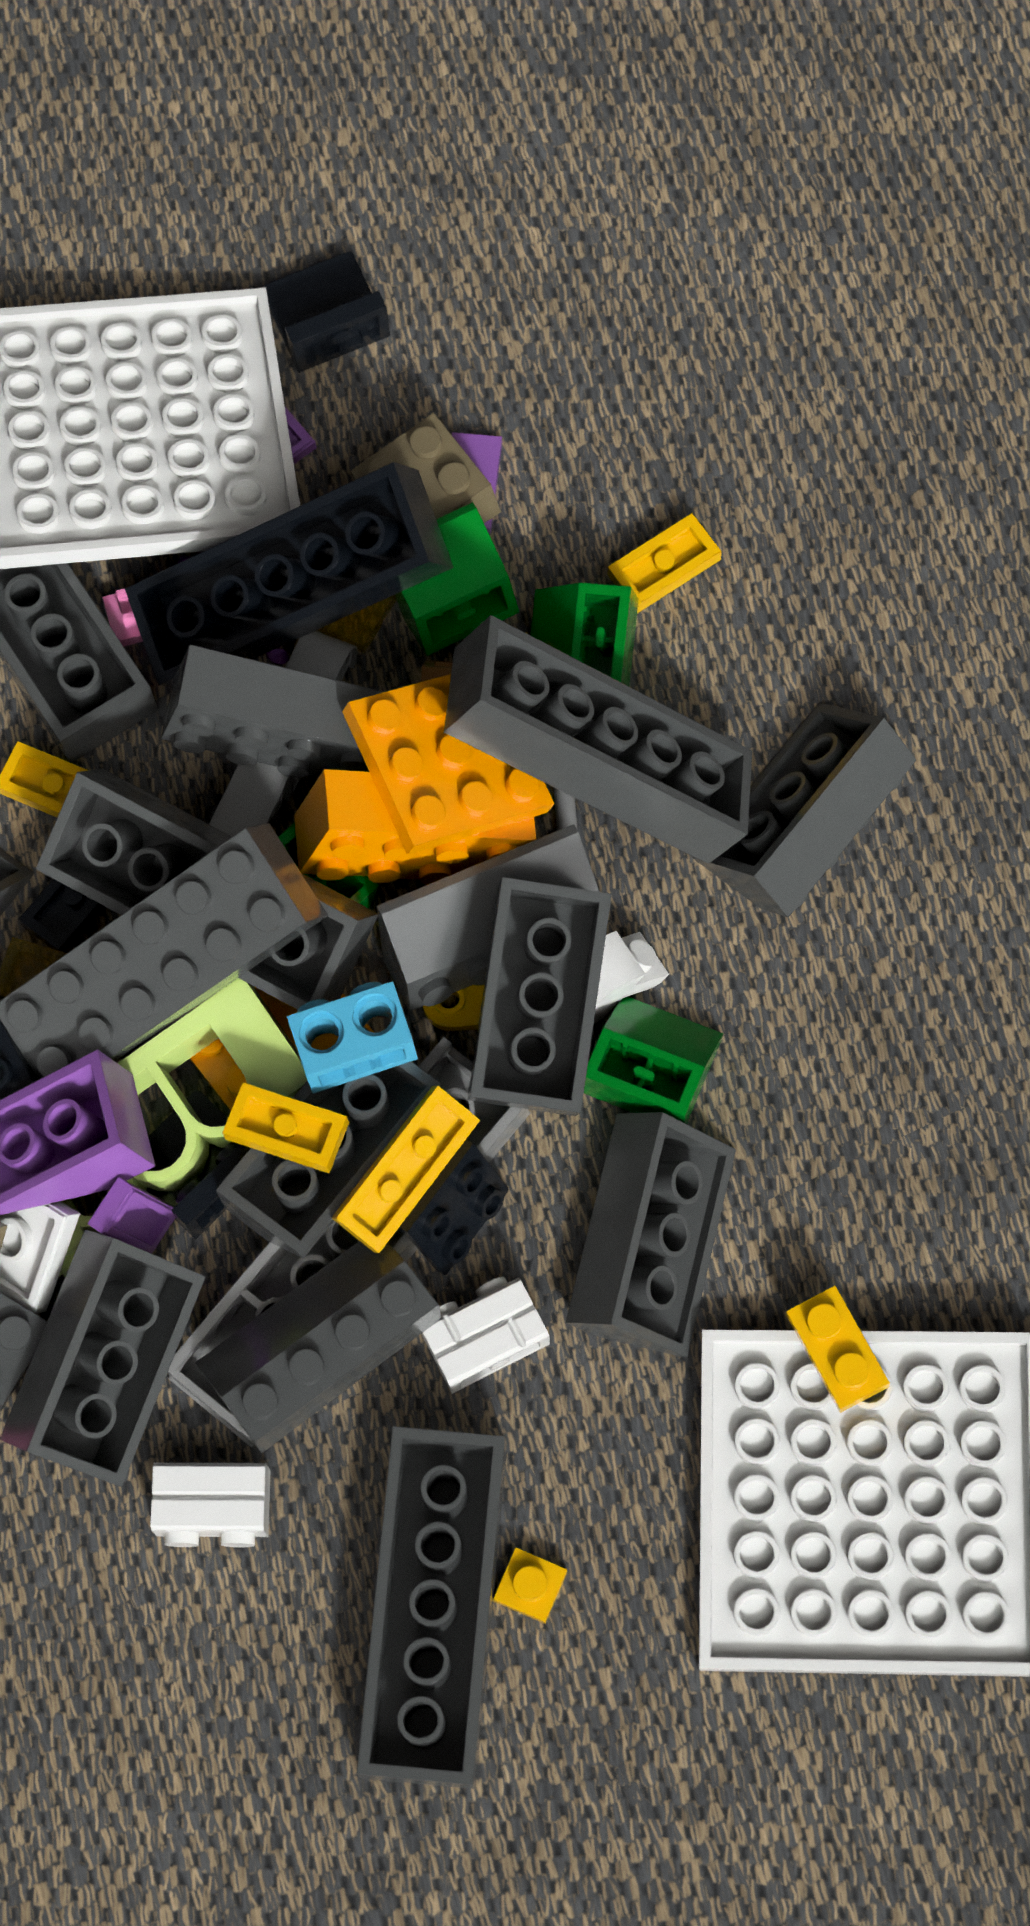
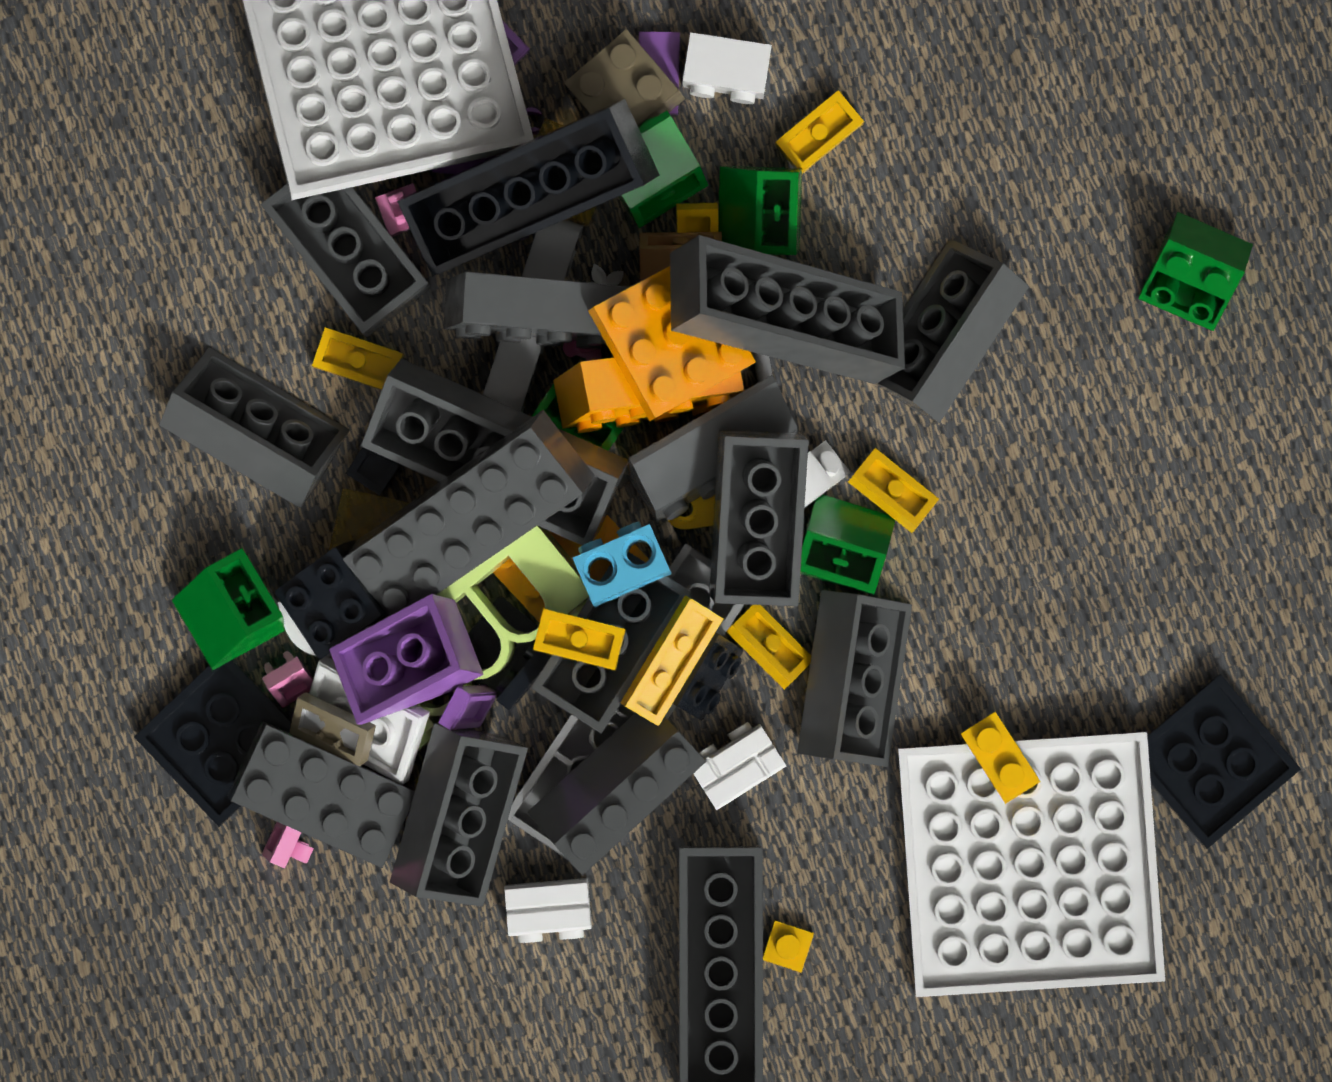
camera: 10 degrees left, 15 degrees up
(543, 1181) = (770, 645): none -> yellow plate
(555, 477) = (726, 68): none -> white brick
(722, 998) = (893, 490): none -> yellow plate

